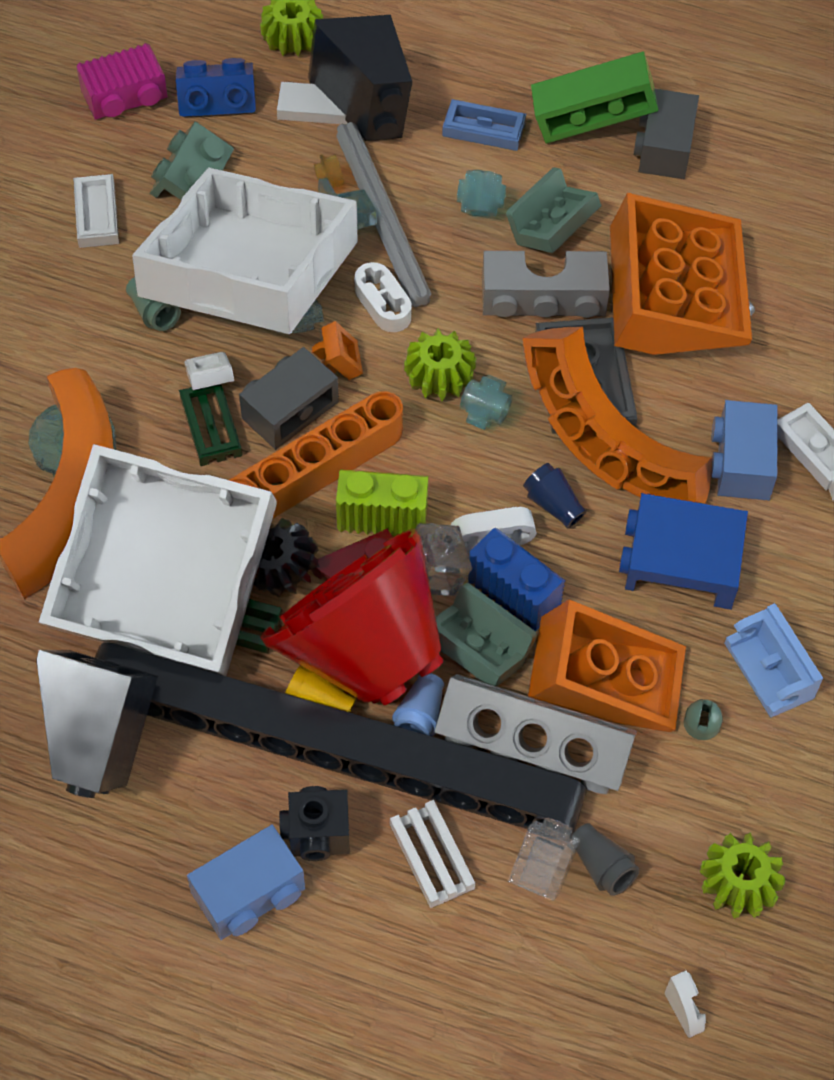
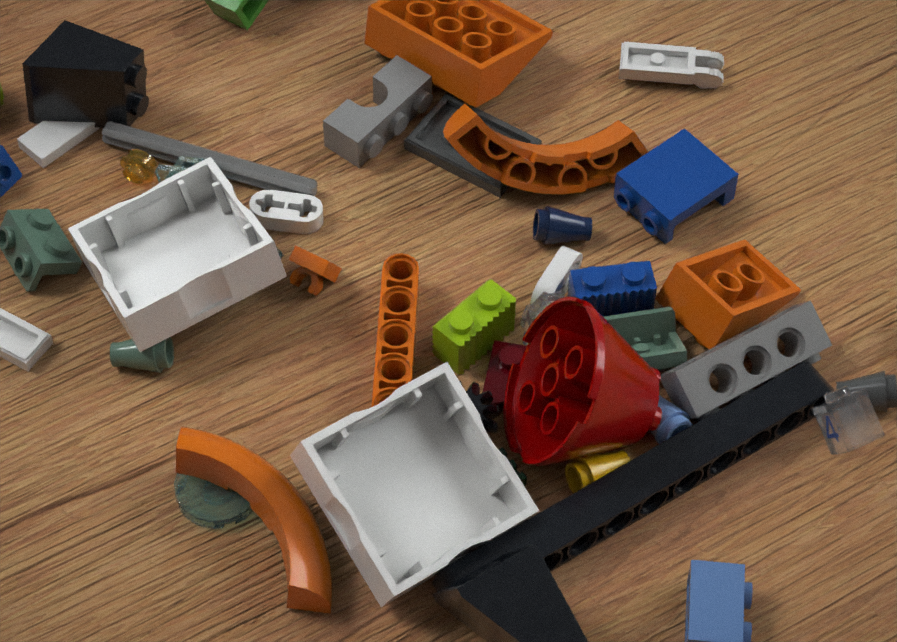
camera: 50 degrees left, 5 degrees down
(209, 370) = (246, 357): white tile -> none
(217, 450) = (288, 395): dark green tile -> none
(289, 397) = (323, 323): dark grey brick -> none
(316, 823) = (708, 532): black brick -> none
(415, 818) = (780, 483): white tile -> none
(439, 364) = (386, 215): lime gear -> none
(481, 193) = (262, 91): clear light blue gear -> none
(484, 128) = (196, 54): medium blue tile -> none
(486, 402) = (447, 210): clear light blue gear -> none
(550, 212) = (322, 66): sand green bracket -> none
(692, 718) = (802, 269): sand green hinge -> none
(746, 450) = (627, 95): medium blue brick -> none
(774, 661) = (800, 199): light blue hinge -> none

